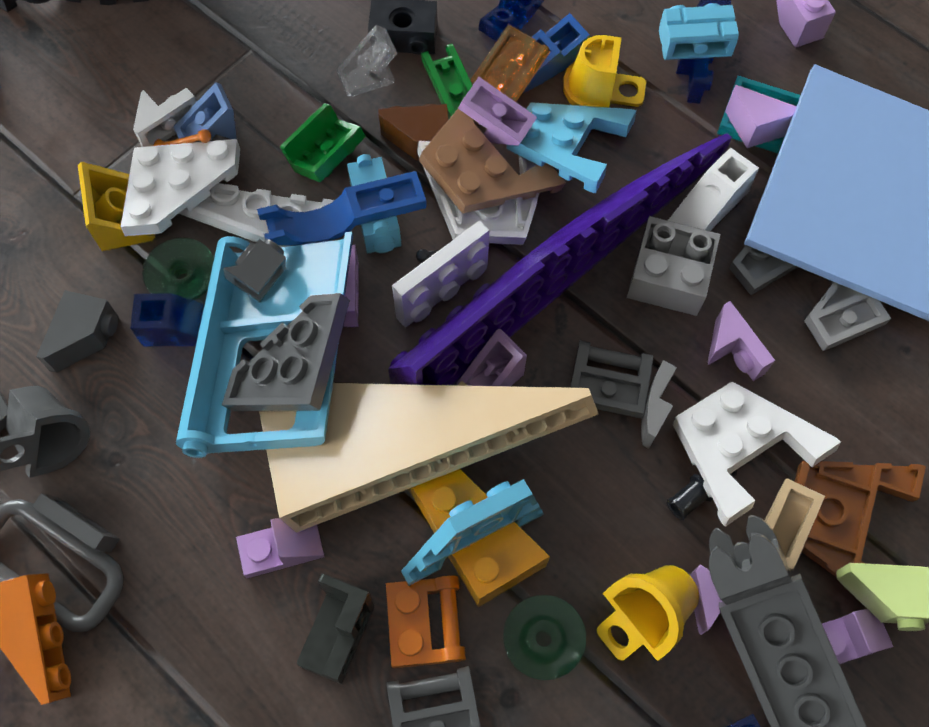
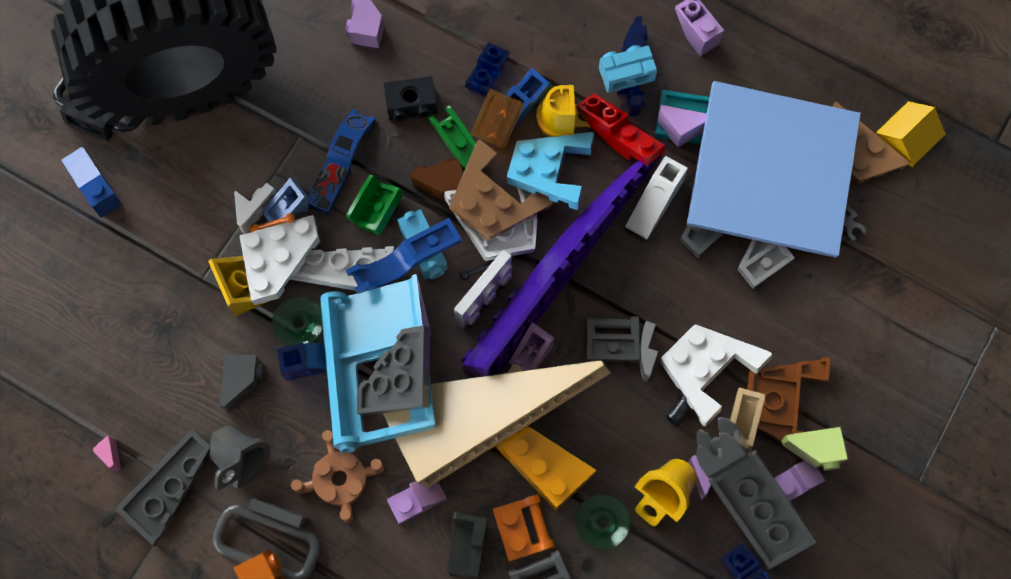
camera: 10 degrees left, 5 degrees up
(156, 486) = (328, 467): none -> nougat plate
(257, 268) = (357, 313): dark grey window -> none
(288, 90) = (339, 161): none -> piece
(368, 64) = (392, 135): clear slope -> none
(471, 523) = (542, 461): medium azure wing -> none
(502, 116) = (499, 164): lavender slope -> none
(668, 113) = (617, 132): none -> red slope
(674, 266) = (641, 249): light grey slope -> none
(735, 336) = (690, 291): lavender slope -> none

